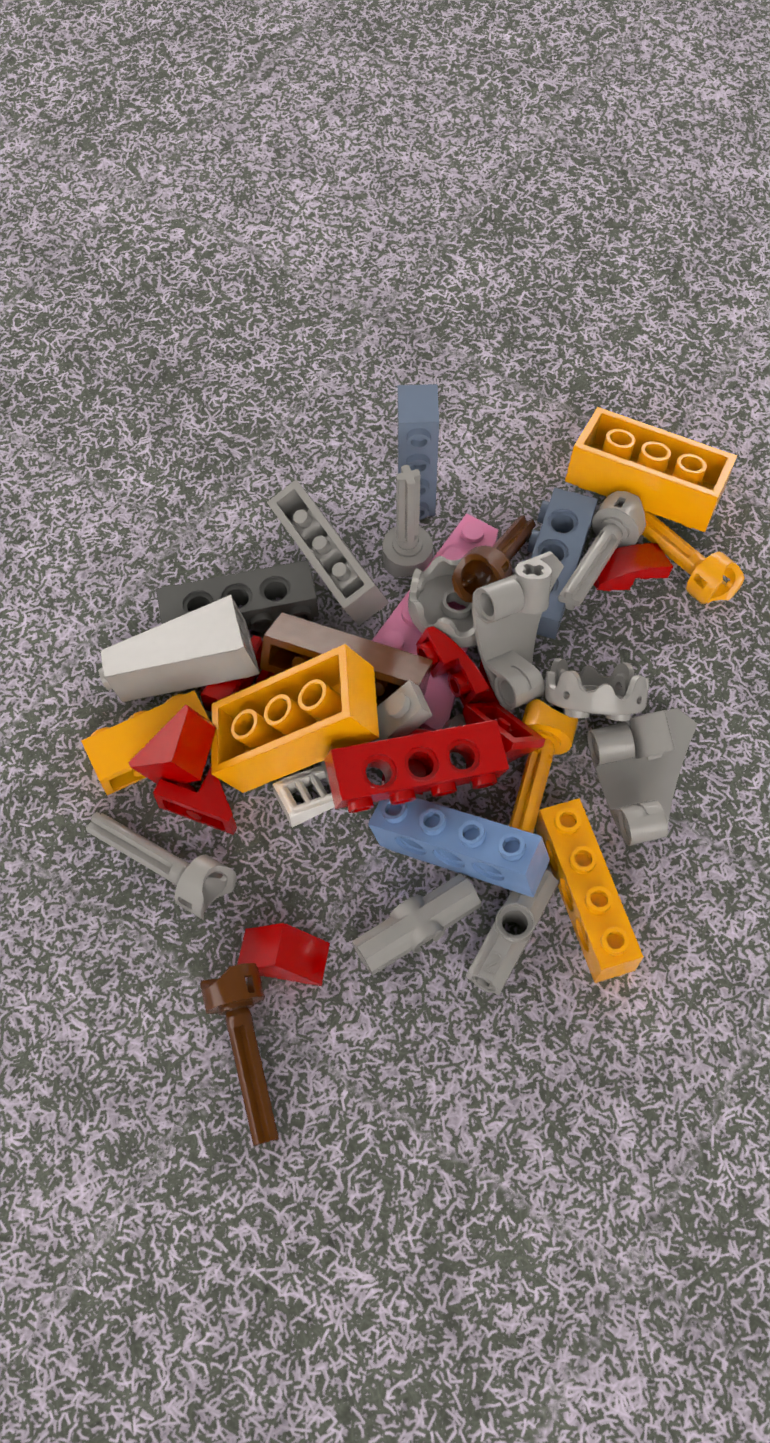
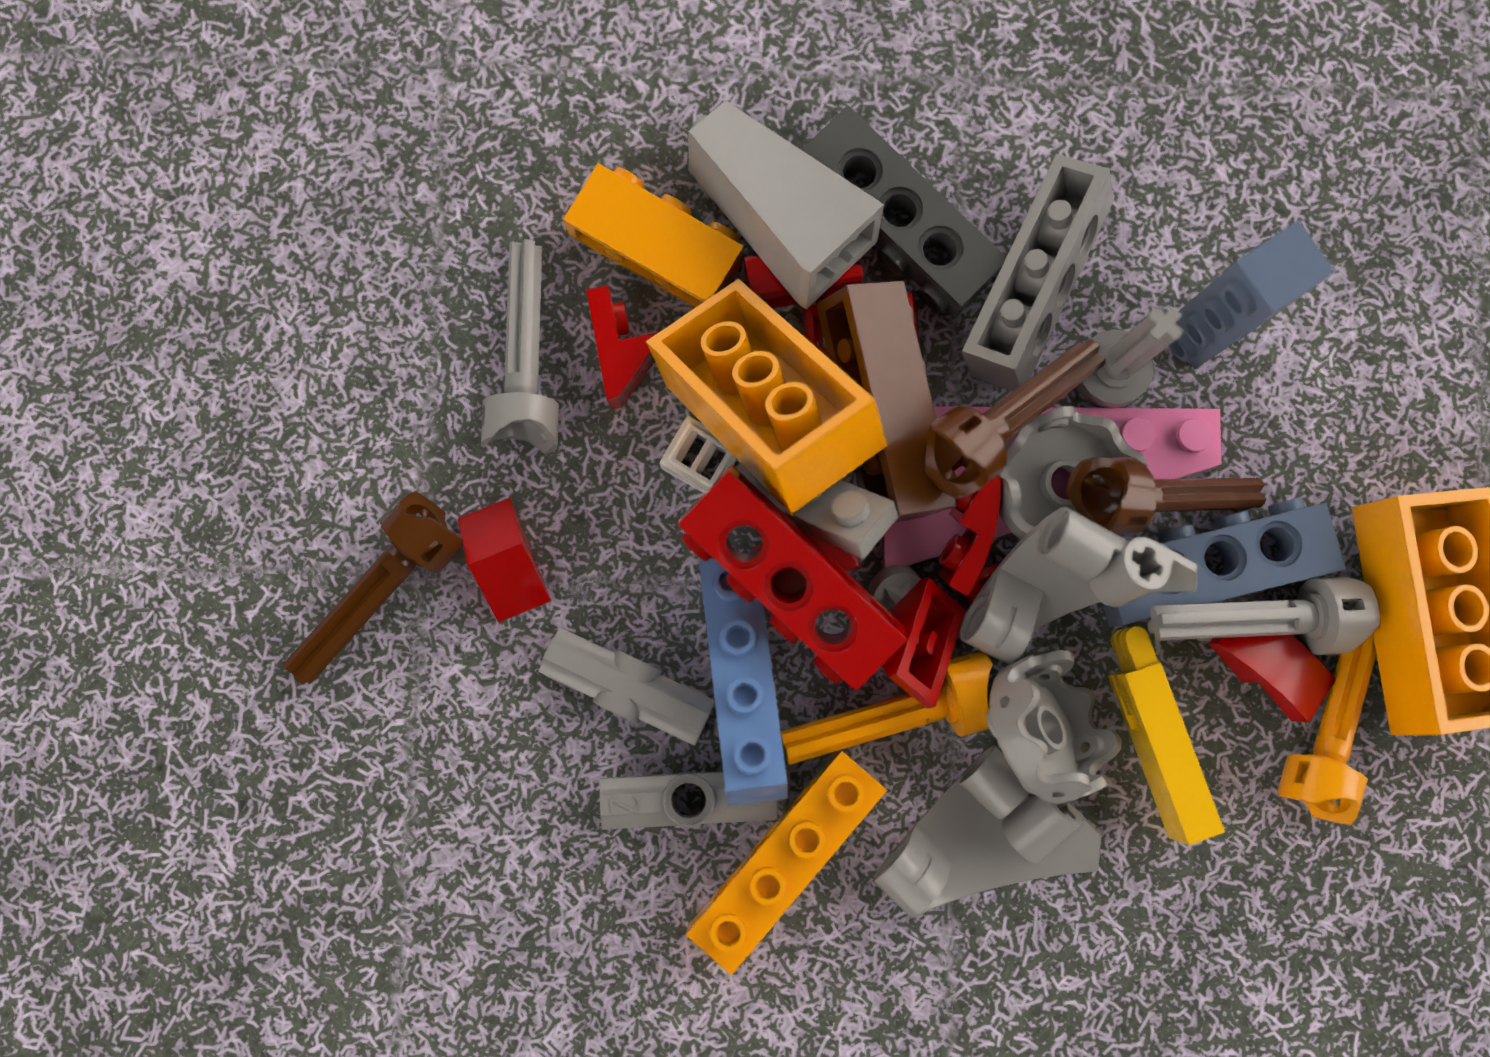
camera: 55 degrees right, 20 degrees up
(177, 750) = (653, 282): red slope -> none
(402, 619) = (978, 439): none -> reddish brown piece
(637, 642) = (1162, 740): none -> yellow hinge

